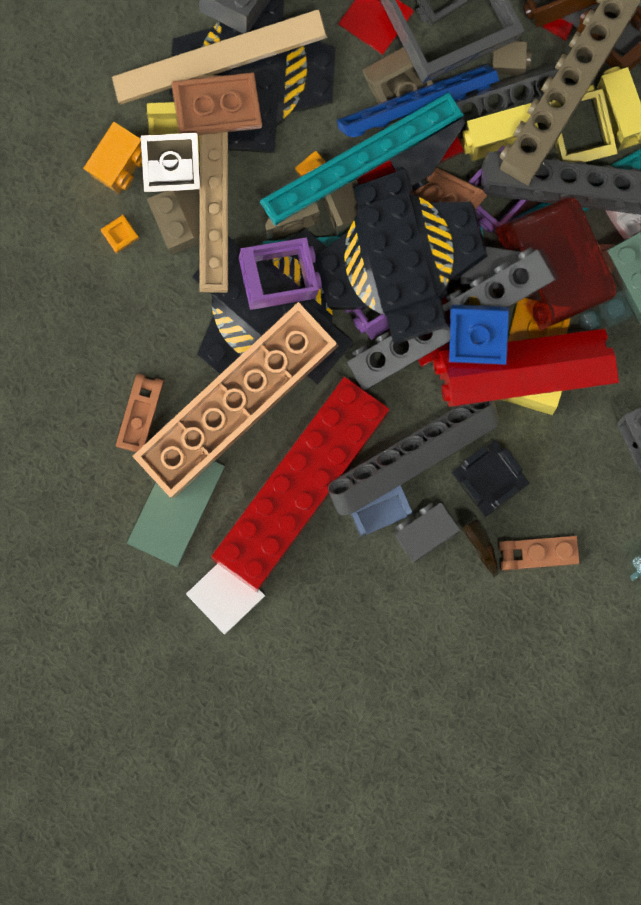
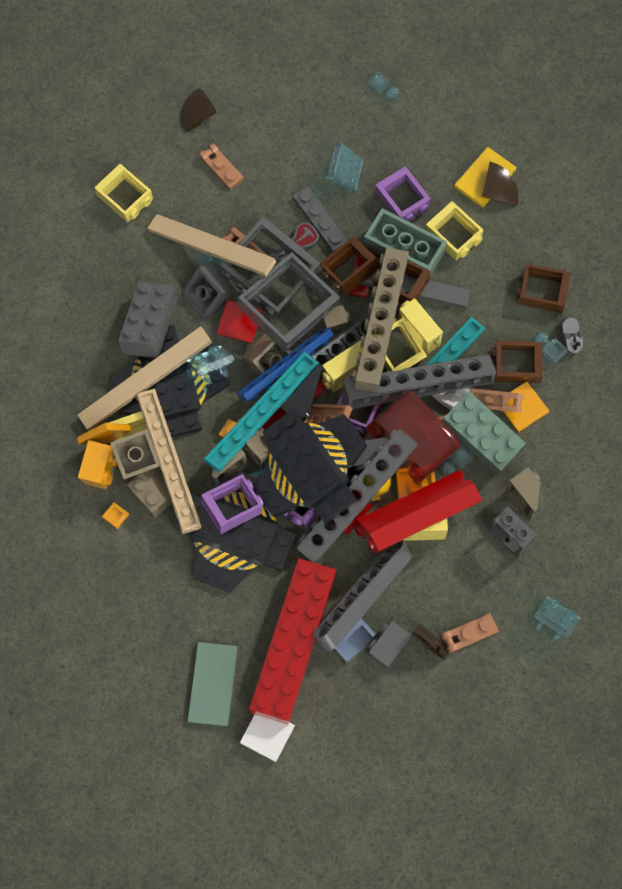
camera: 20 degrees left, 10 degrees down
(138, 117) = (104, 433): none -> light orange tile
(139, 414) = (168, 631): nougat plate -> none
(217, 104) = (153, 408): nougat tile -> none
(235, 401) = (230, 598): light nougat brick -> none
(316, 63) = (206, 362): none -> clear light blue plate
(478, 334) = (379, 498): blue plate -> none
(490, 477) = (419, 593): black panel -> none

